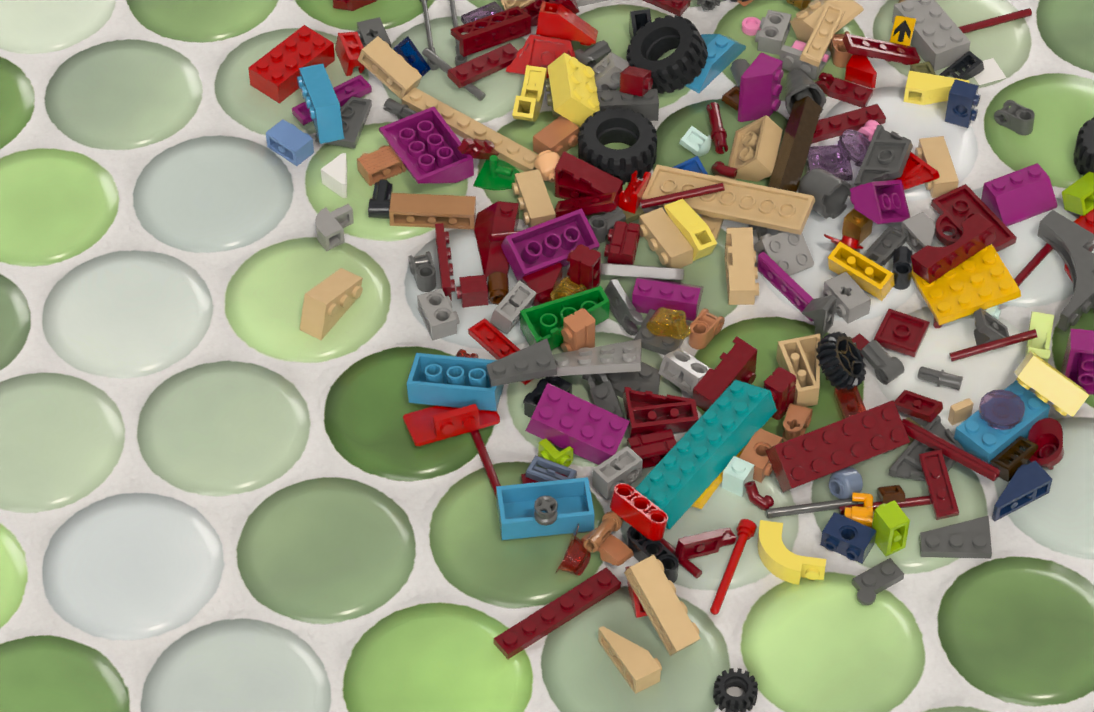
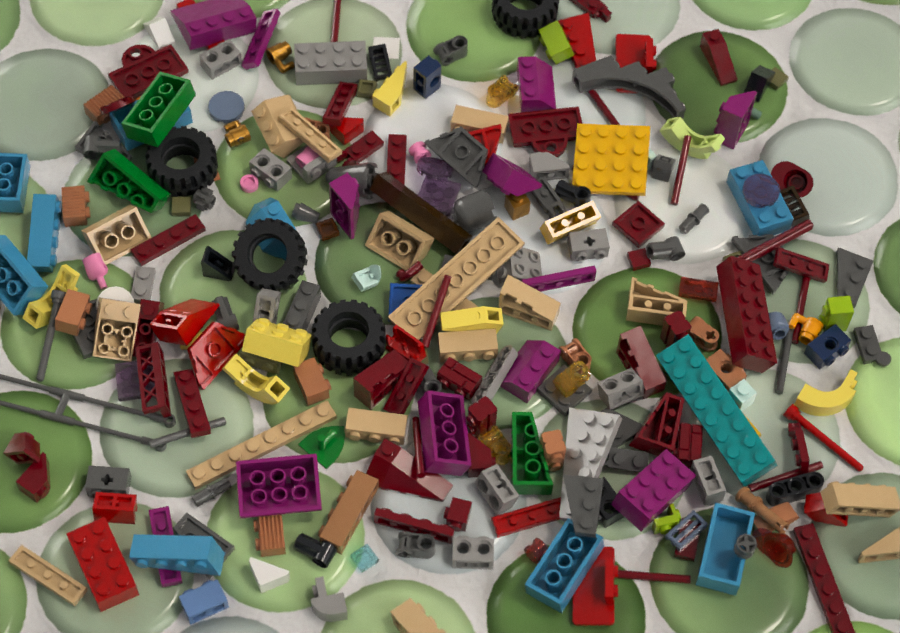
camera: 70 degrees left, 10 degrees up
(265, 33) = (48, 575): none -> tan plate
(389, 67) = (160, 480): tan brick -> none
(392, 240) = (364, 558): none -> clear light blue tile
(412, 55) = (153, 461): clear blue slope -> none
(478, 148) = (301, 445): dark red hinge -> none
(497, 287) = (463, 491): reddish brown brick -> none
(546, 163) = (343, 398): light nougat head -> none
(623, 308) = (538, 406): dark grey hinge -> none
(635, 81) = (295, 290): dark red brick -> none
(638, 511) = (765, 479): red beam -> none
(718, 133) = (356, 256): dark red pin -> none
(755, 498) = (768, 390): dark red arm -> none
(822, 311) = (605, 266): dark grey slope -> none
(841, 361) = (662, 275): black gear -> none
(849, 241) = (535, 218): red plate -> none
(891, 493) = (795, 300): reddish brown tile -> none
(902, 30) = (322, 80): yellow sticker -> none
(918, 406) = (719, 245): dark red plate -> none
(934, 262) = (591, 169): dark red arch -> none
(960, 411) = (734, 220): tan tile -> none
(988, 168) = (500, 92): none -> clear yellow piece
(1026, 486) = (824, 216): dark blue slope -> none
(1050, 384) = (748, 149): light yellow brick -> none

